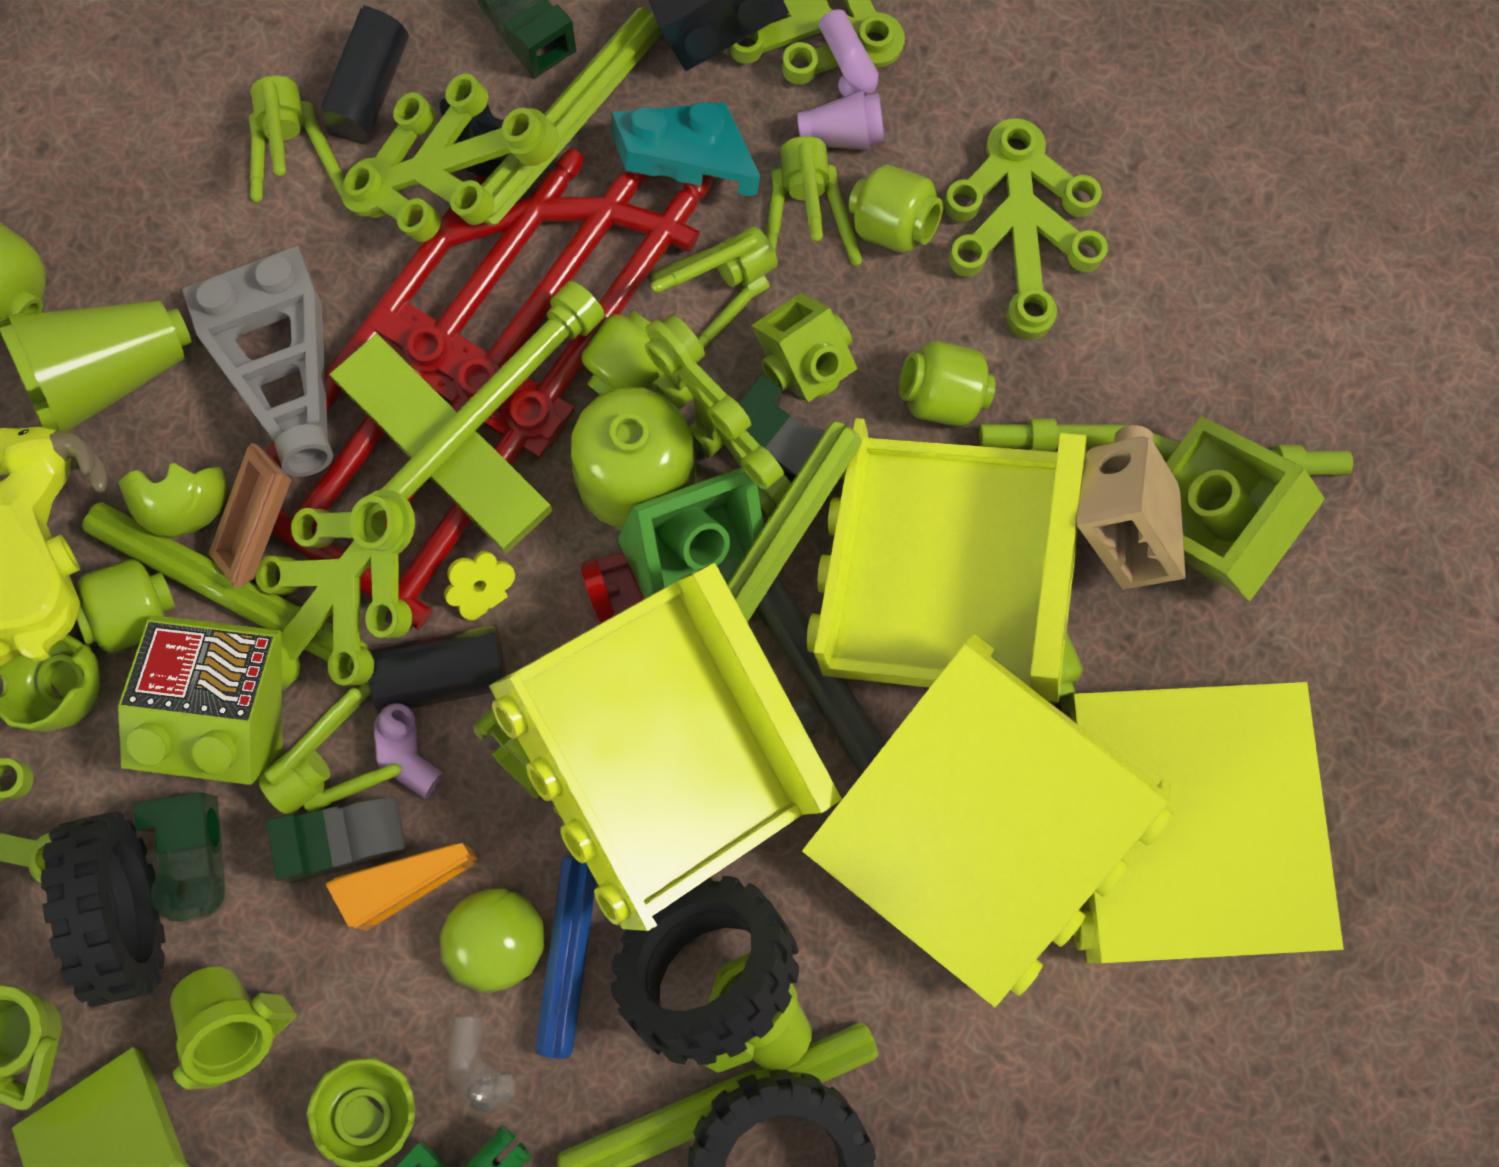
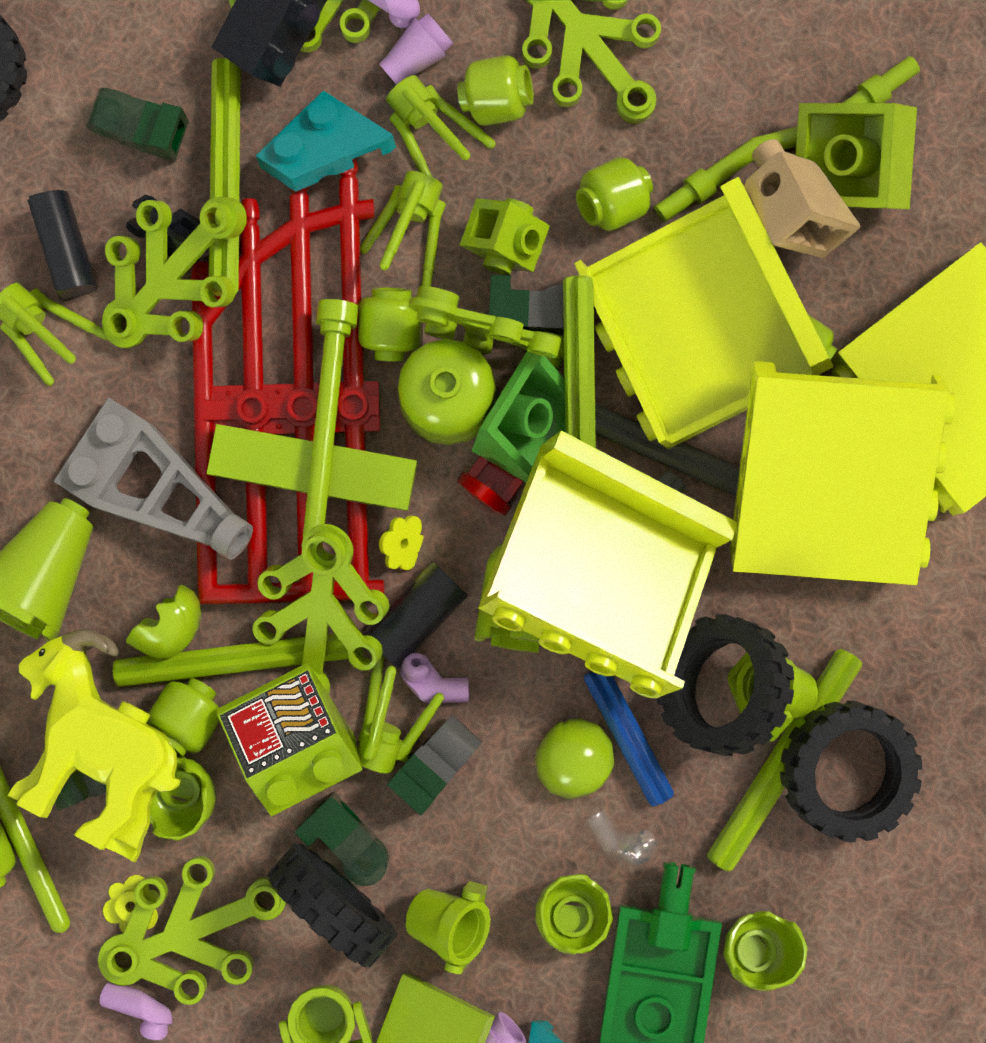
camera: 30 degrees left, 10 degrees up
(249, 516) = (226, 603): nougat tile -> none
(385, 889) = (486, 776): light orange slope -> none

